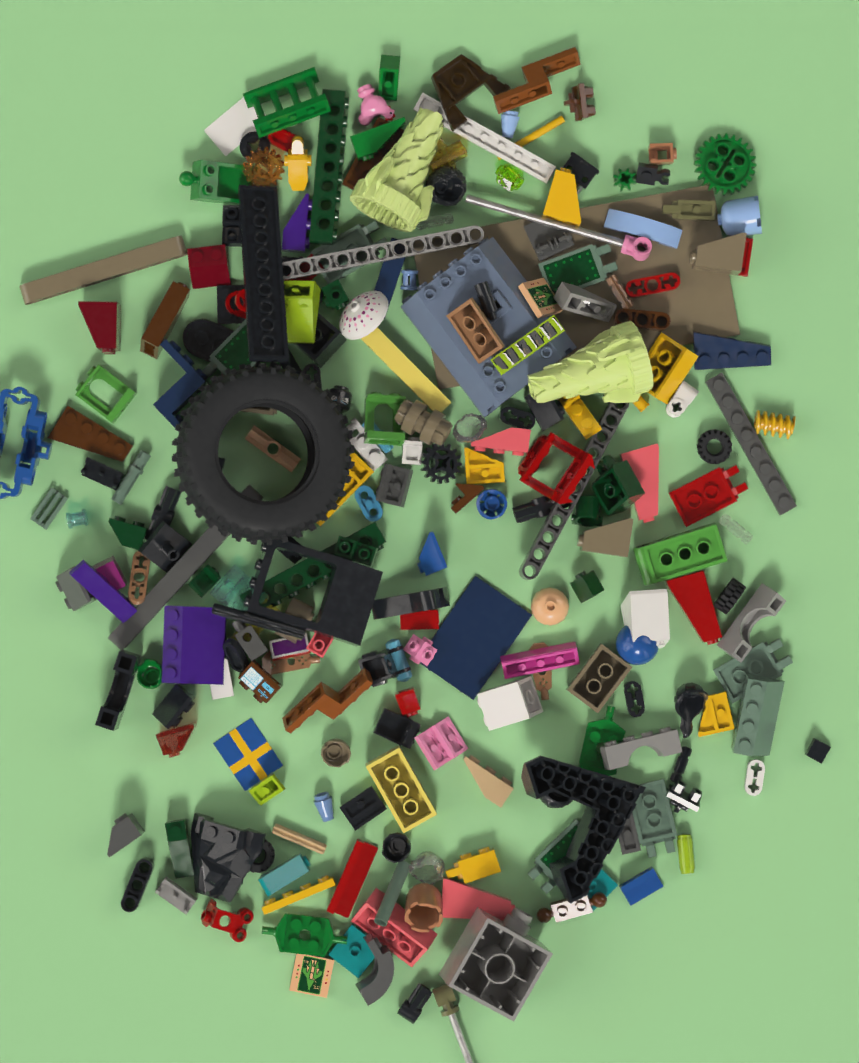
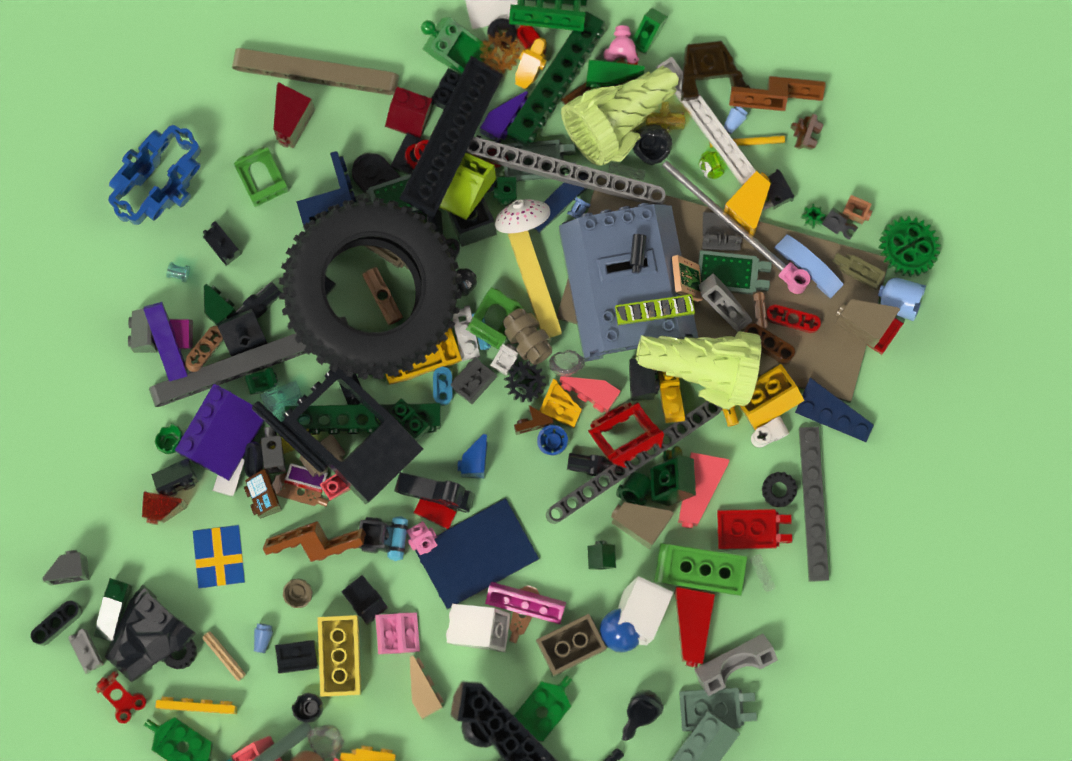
camera: 25 degrees right, 10 degrees down
(43, 503) = (155, 245): sand green tile -> none
(86, 434) = (225, 203): reddish brown wing -> none
(113, 709) = (117, 455): black arch -> none
(131, 476) = (245, 259): sand green pin -> none
(164, 319) = (345, 138): reddish brown slope -> none
(267, 789) = (218, 594): lime slope -> none
(284, 874) = (193, 680): teal slope -> none
(352, 878) = (252, 717): red panel -> none
(408, 702) = (386, 578): red slope -> none
(475, 330) = (614, 274): medium nougat slope -> none
(515, 422) = (617, 374): black beam -> none
(549, 606) = (559, 559): light nougat cylinder -> none
(618, 754) = (601, 735): light grey arch -> none
(638, 697) = (589, 680): black beam -> none
(716, 715) = (662, 734): yellow wing -> none
(729, 596) = (727, 629): black tyre -> none
(774, 424) = (843, 496): yellow piece -> none

